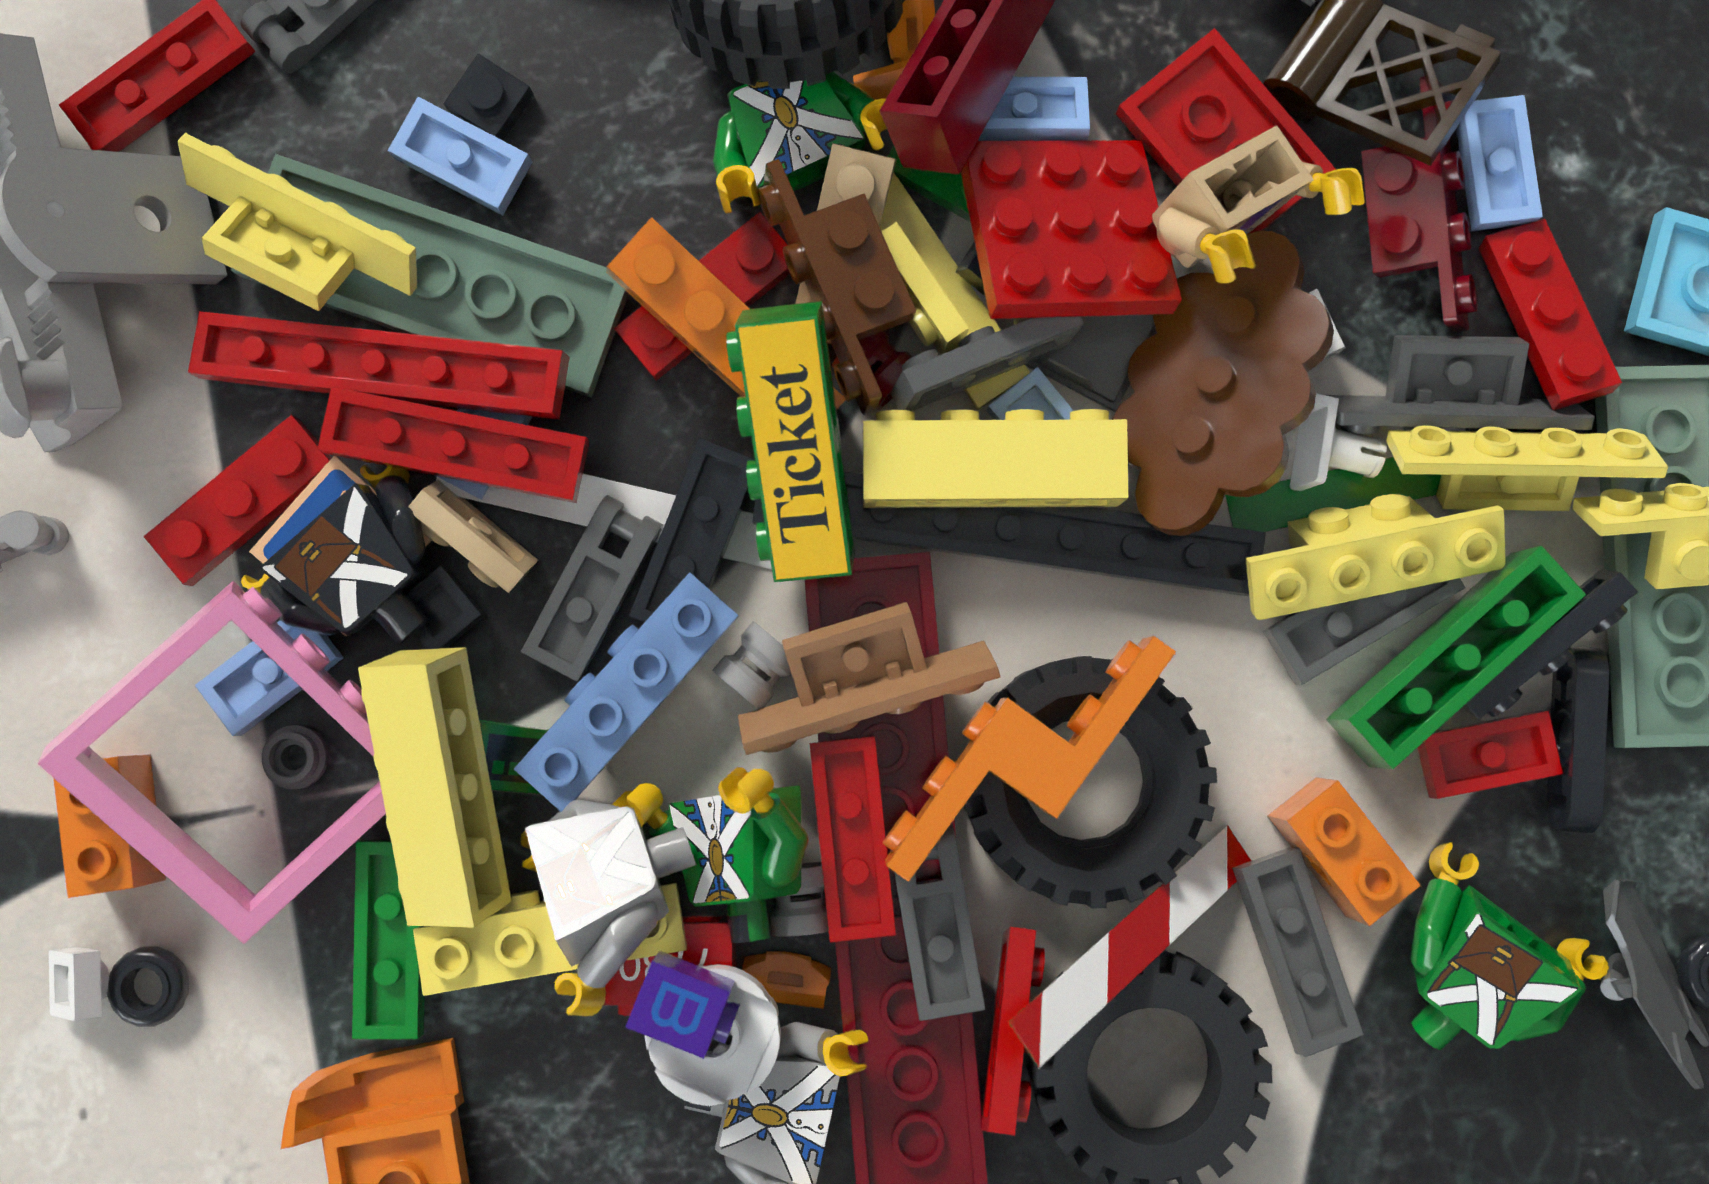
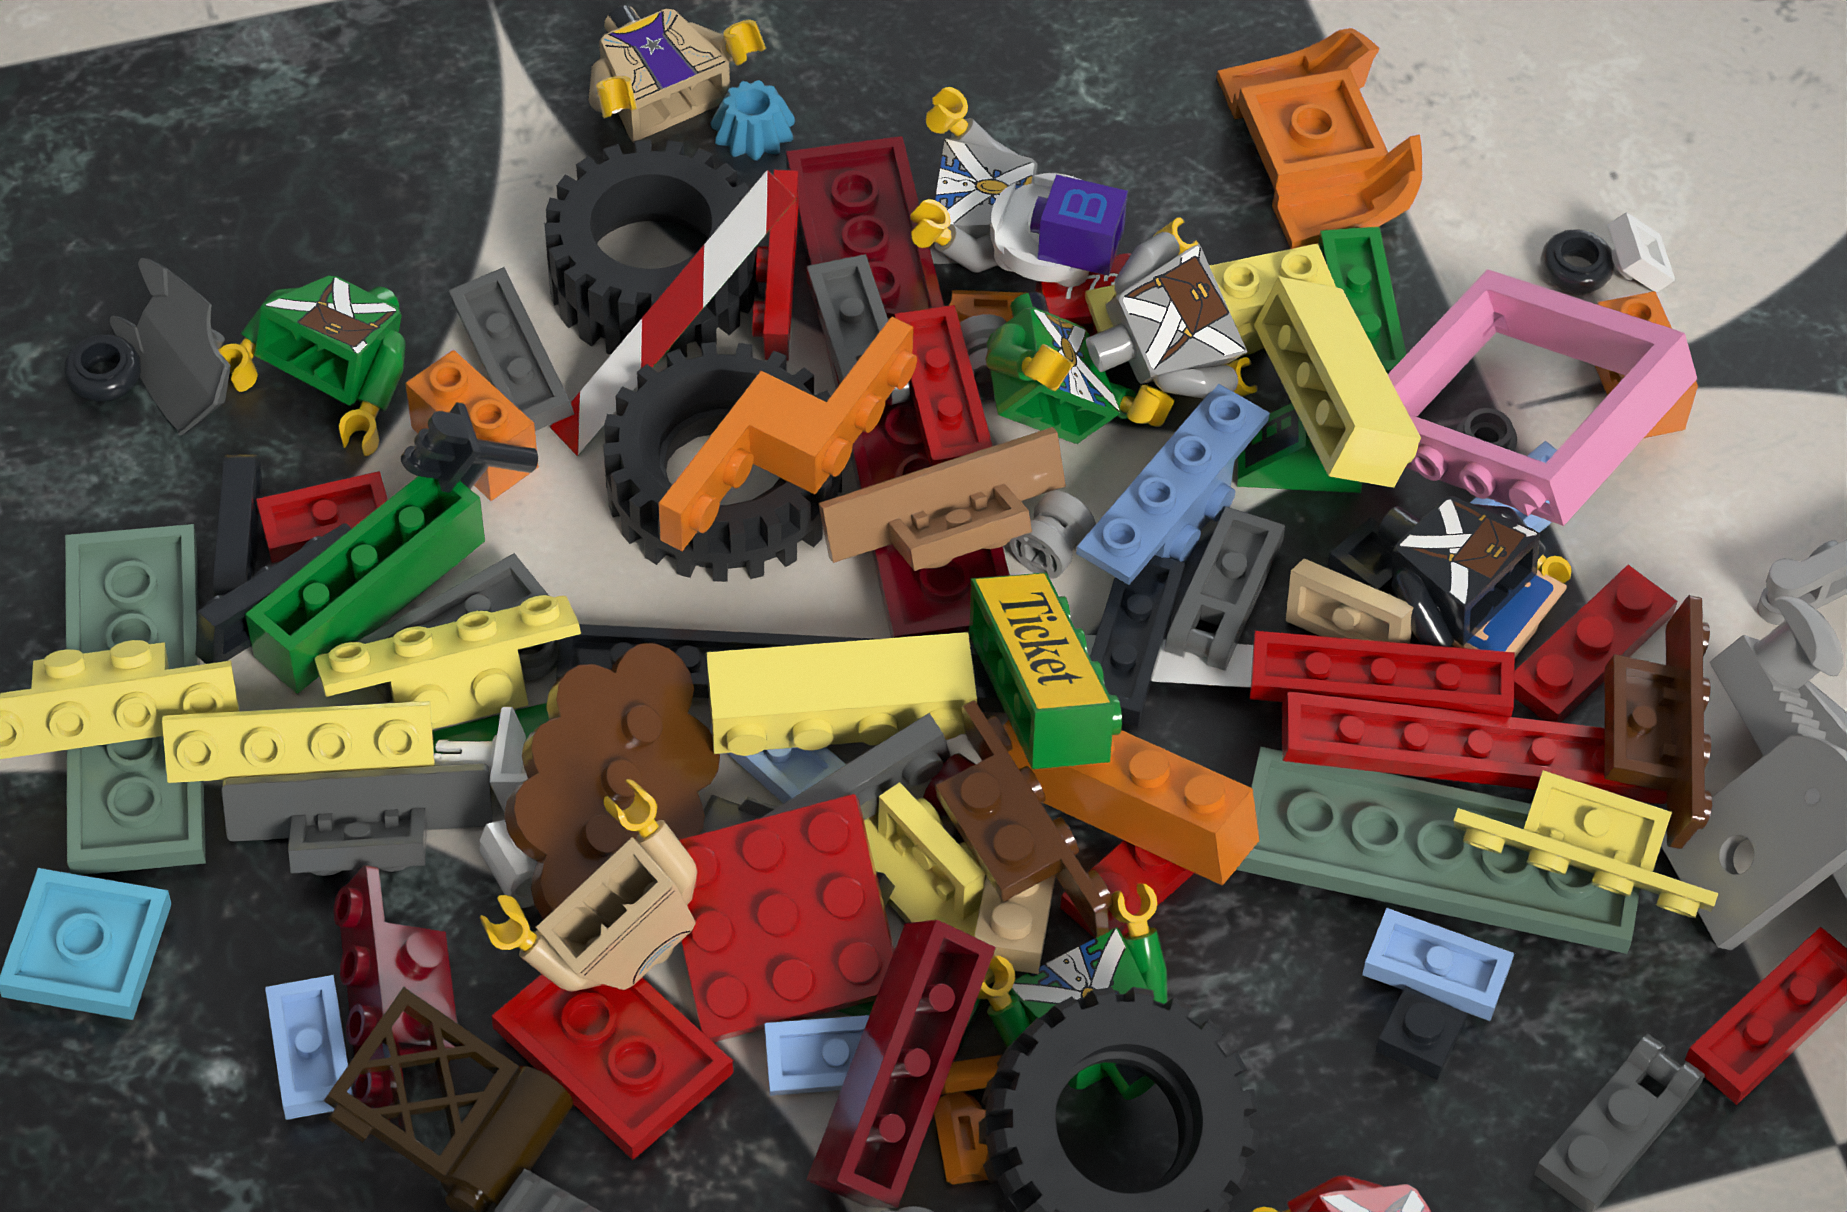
camera: 175 degrees right, 30 degrees down
(186, 361) = (1658, 722): none -> reddish brown bracket
(1380, 761) = (454, 453): none -> black arm
(1549, 314) = (258, 894): red plate -> none

